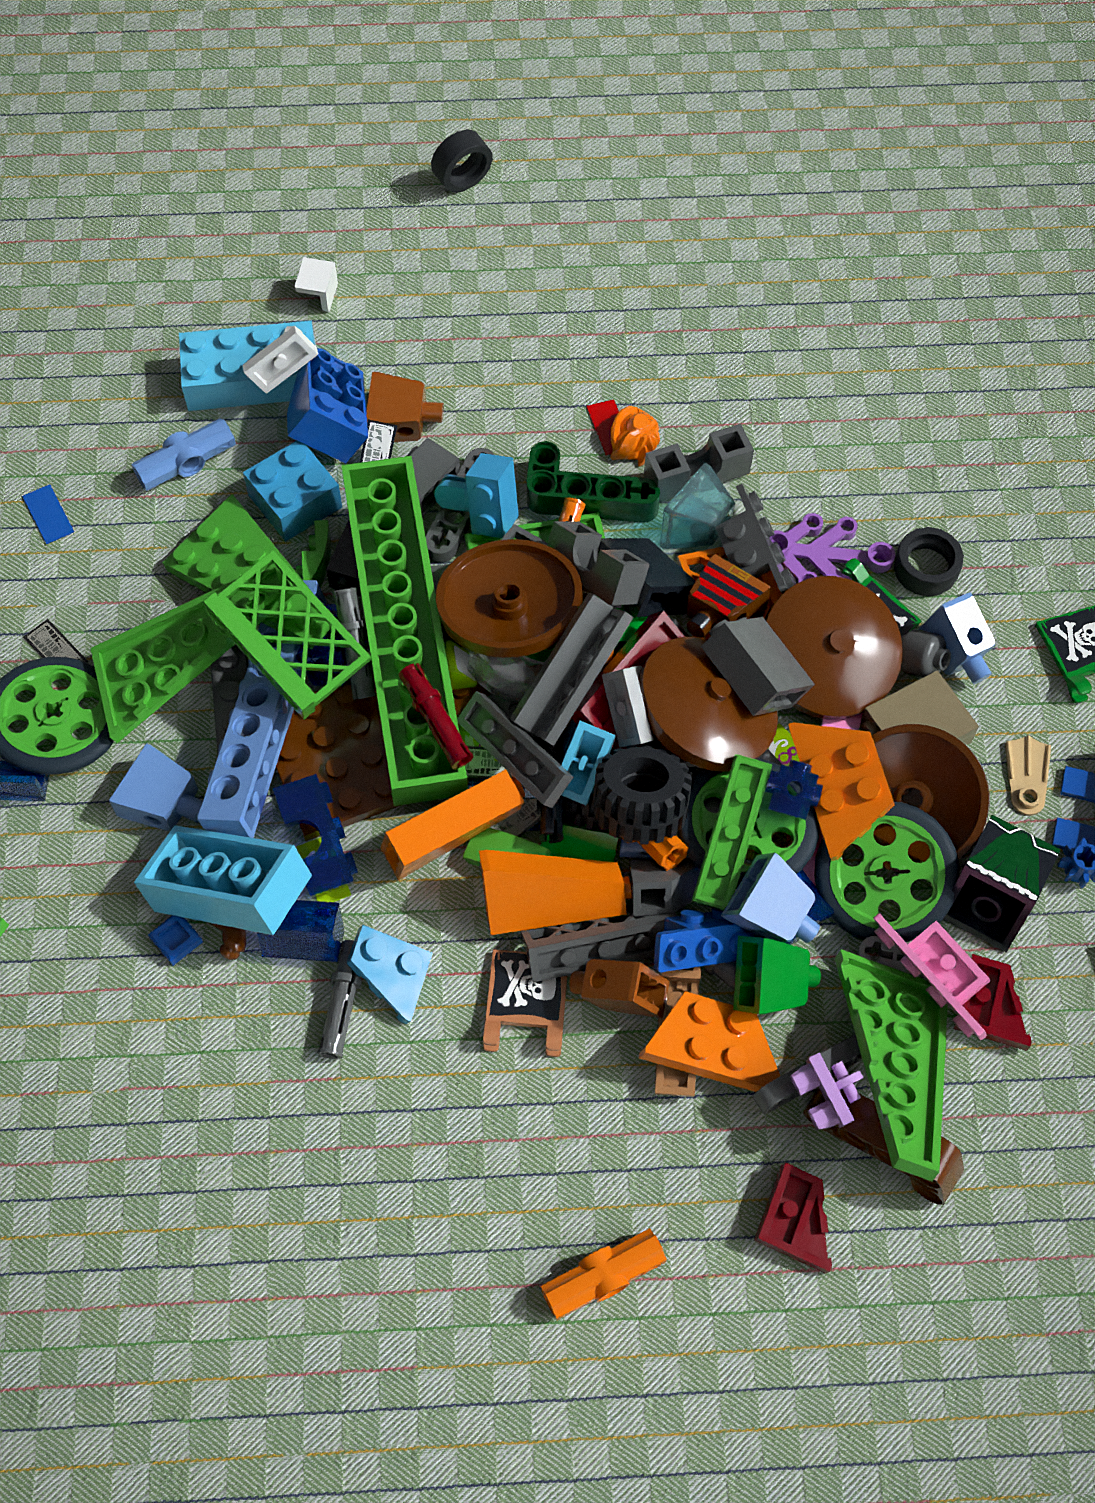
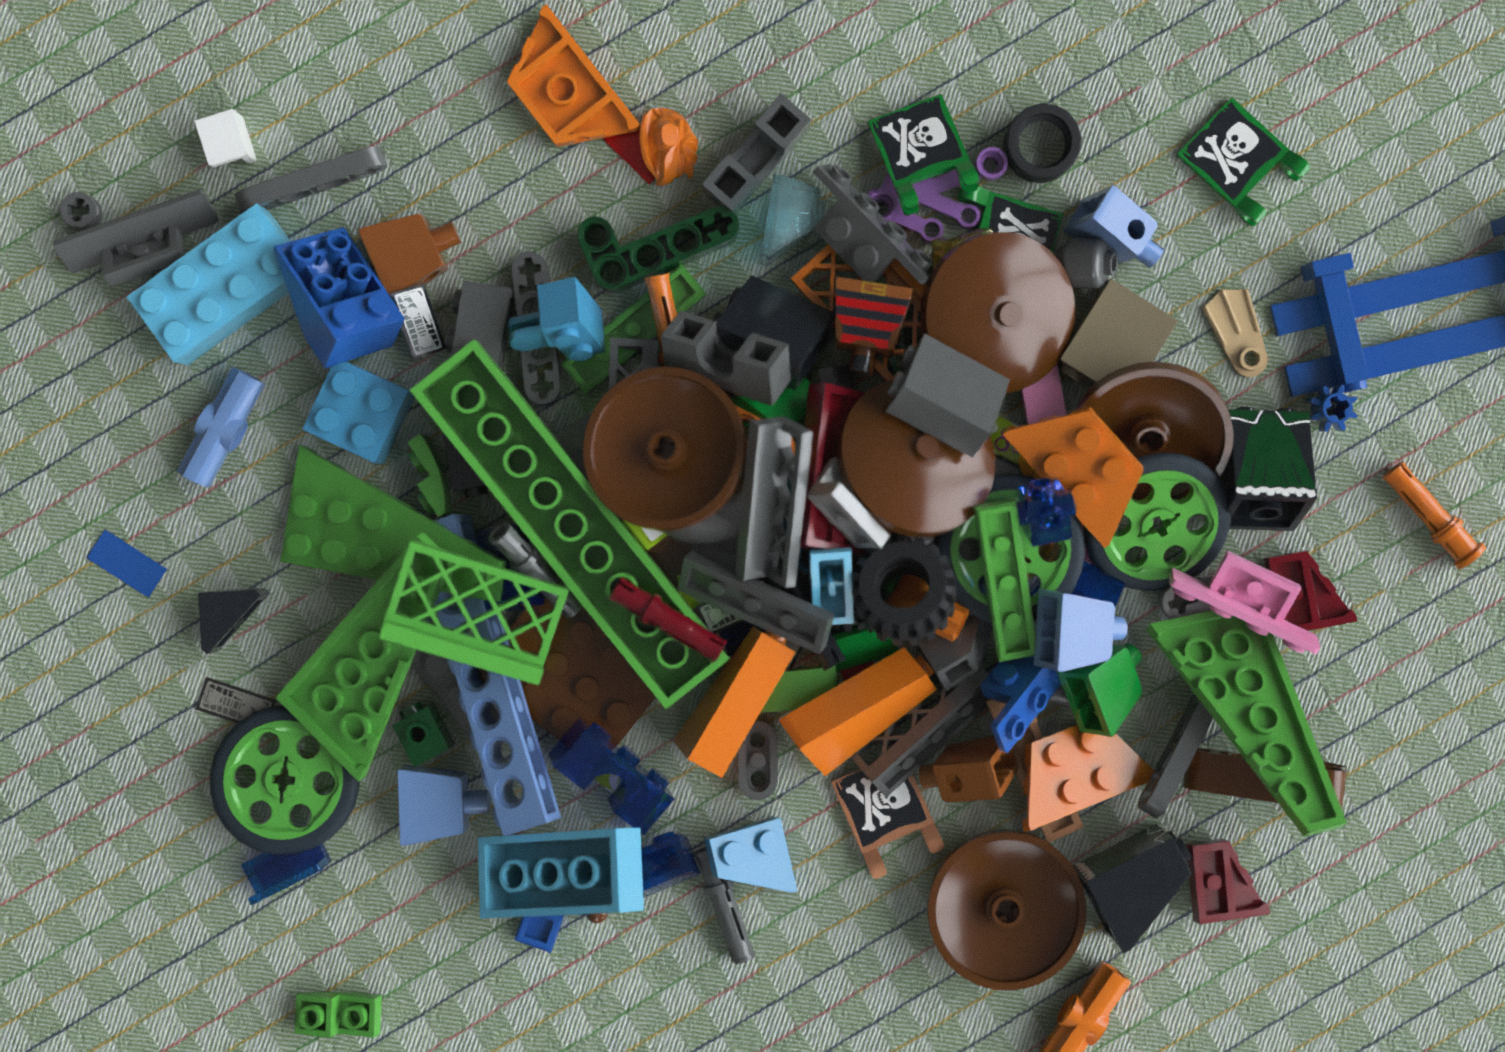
camera: 30 degrees left, 25 degrees up
(97, 575) = (224, 613): none -> black slope
(184, 735) = (422, 733): none -> dark green brick
(185, 274) = (75, 200): none -> dark grey bush
(206, 310) = (139, 240): none -> dark grey bracket
(280, 359) = (263, 287): white tile -> none
(395, 339) = (313, 179): none -> dark grey beam
(440, 897) = (759, 758): none -> dark grey plate
(581, 365) = (566, 88): none -> orange wing
(586, 1128) = (1006, 910): none -> reddish brown dish
(715, 1158) = (1134, 882): none -> black slope
(816, 1075) = (1220, 793): lavender hips -> none
(829, 517) = (920, 145): none -> flag

